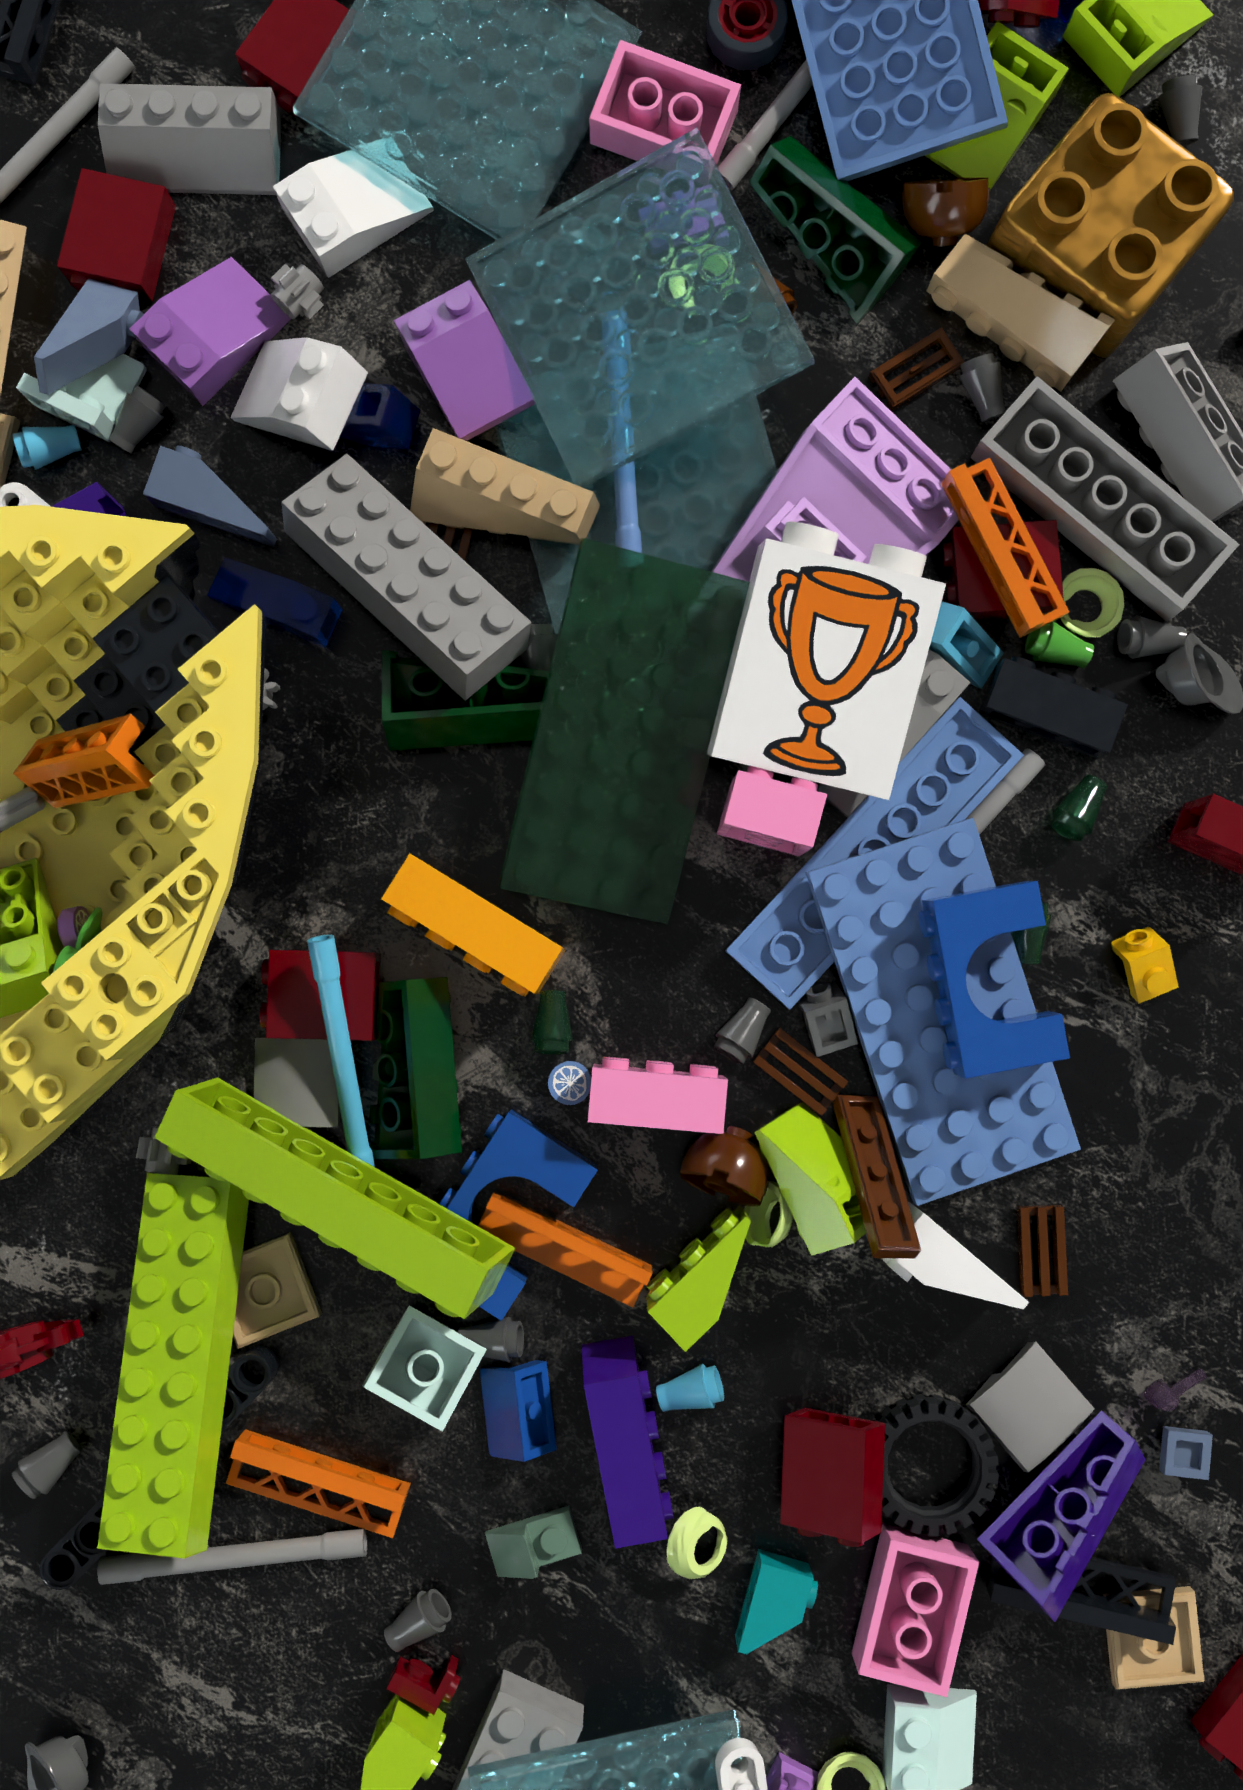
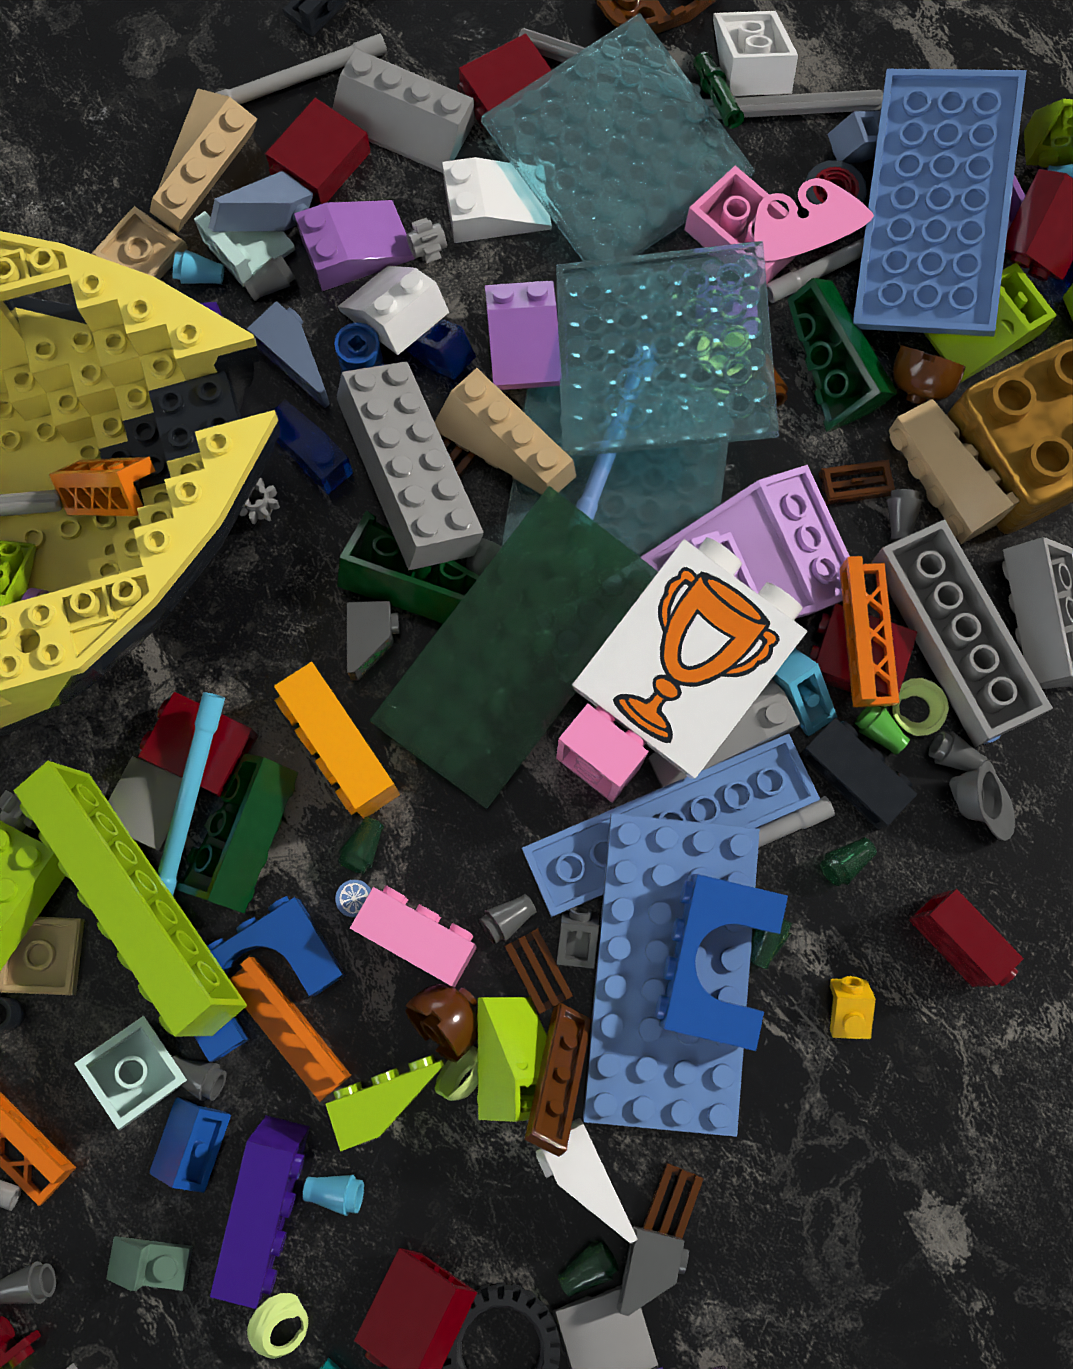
camera: 20 degrees right, 10 degrees down
(283, 463) = (358, 347): none -> blue wheel
(450, 789) = (369, 634): none -> dark grey slope
(758, 68) = (826, 222): none -> bright pink piece
(986, 1347) = (589, 1269): none -> clear green cone
(1050, 1321) = (650, 1268): none -> dark grey slope

